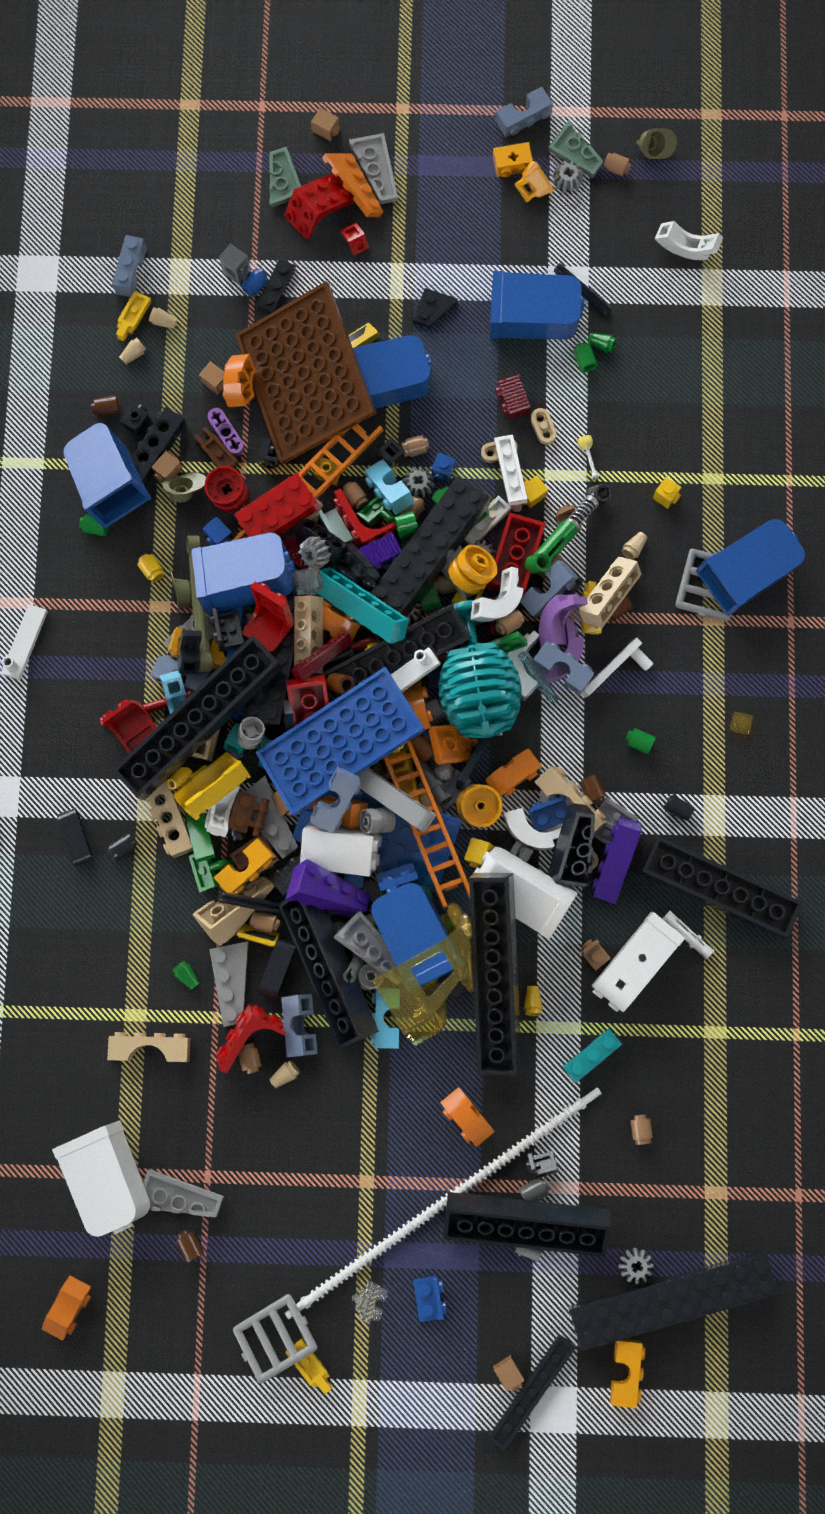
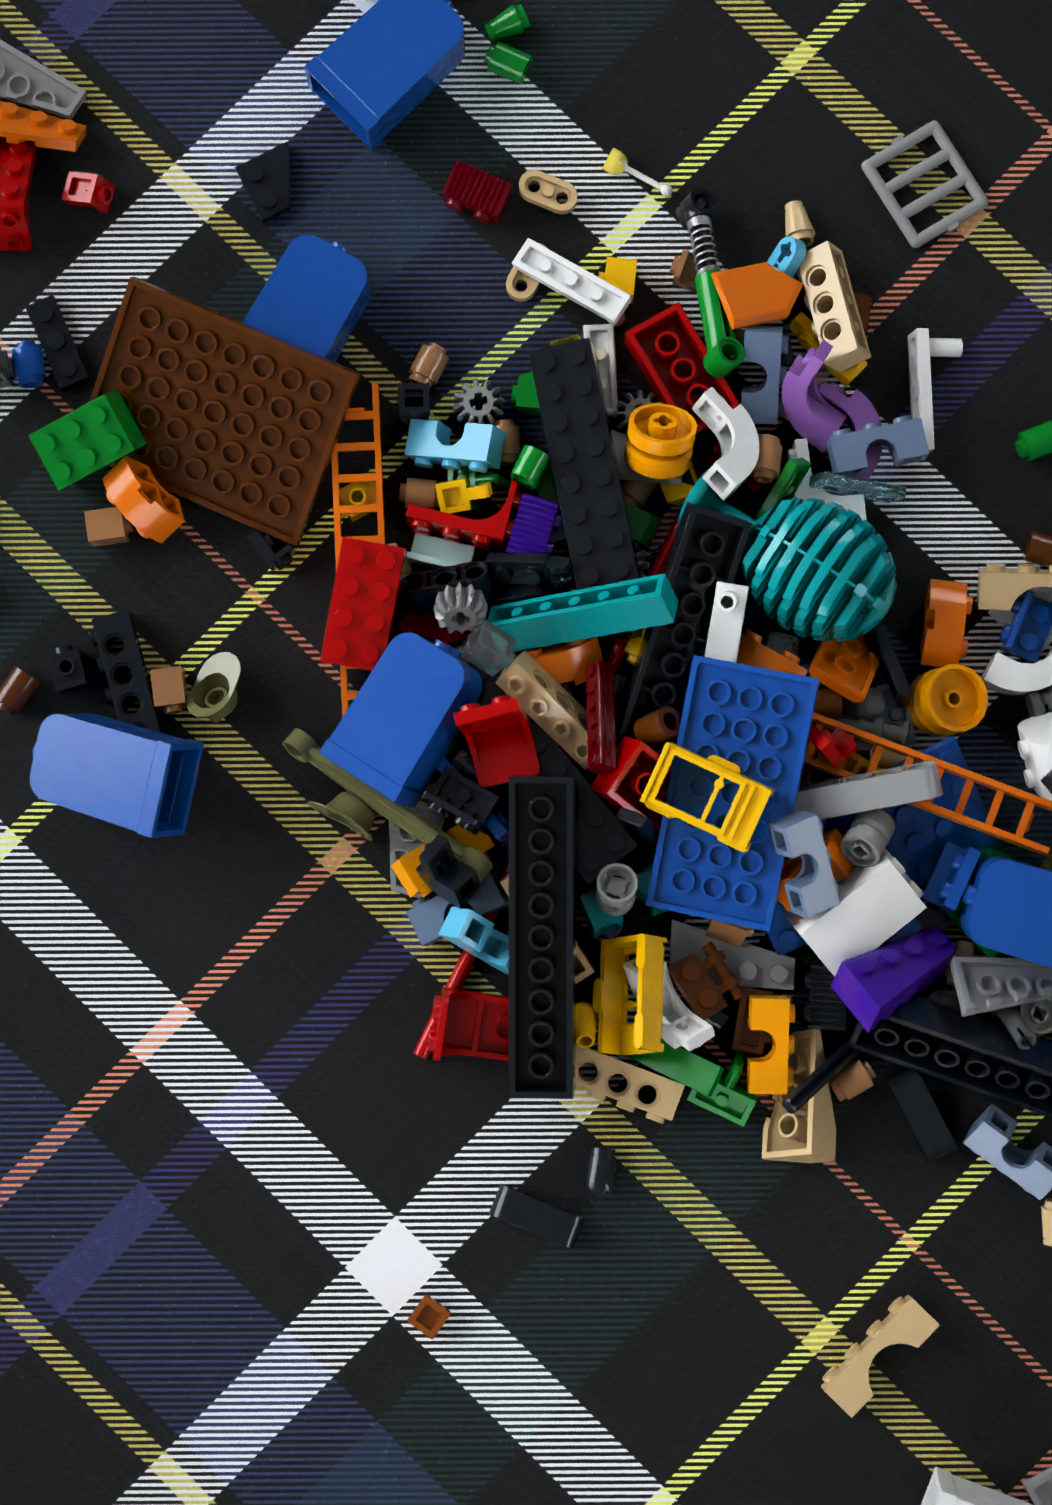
camera: 50 degrees left, 5 degrees up
(24, 642) = (228, 1061): white piece -> none
(91, 526) = (157, 848): green brick -> none
(150, 567) = (280, 823): yellow brick -> none
(186, 975) = (828, 1232): green cone -> none
(216, 450) = (205, 609): reddish brown hinge -> none
(217, 532) = (315, 702): blue brick -> none
(219, 482) = (252, 640): red wheel -> none
(225, 439) = (169, 562): medium lavender beam -> none
(229, 971) = (880, 1182): light grey wing -> none
(242, 333) = (87, 439): none -> green brick
(247, 1022) = (963, 1210): red bracket -> none
(249, 933) = (849, 1111): yellow slope -> none
(249, 1058) = (999, 1246): medium nougat brick -> none
(332, 749) = (743, 813): none -> yellow piece
(363, 335) = (226, 295): yellow slope -> none
(366, 508) = (458, 495): none -> yellow plate
(401, 767) = (833, 746): none -> red bracket
(443, 468) = (489, 358): blue brick -> none
(476, 851) = (1002, 753): yellow brick -> none
(581, 552) = (756, 294): none -> orange tile
(609, 554) = (784, 259): none -> medium azure beam
(667, 493) = (770, 126): yellow brick -> none
(751, 565) = (957, 114): blue piece -> none

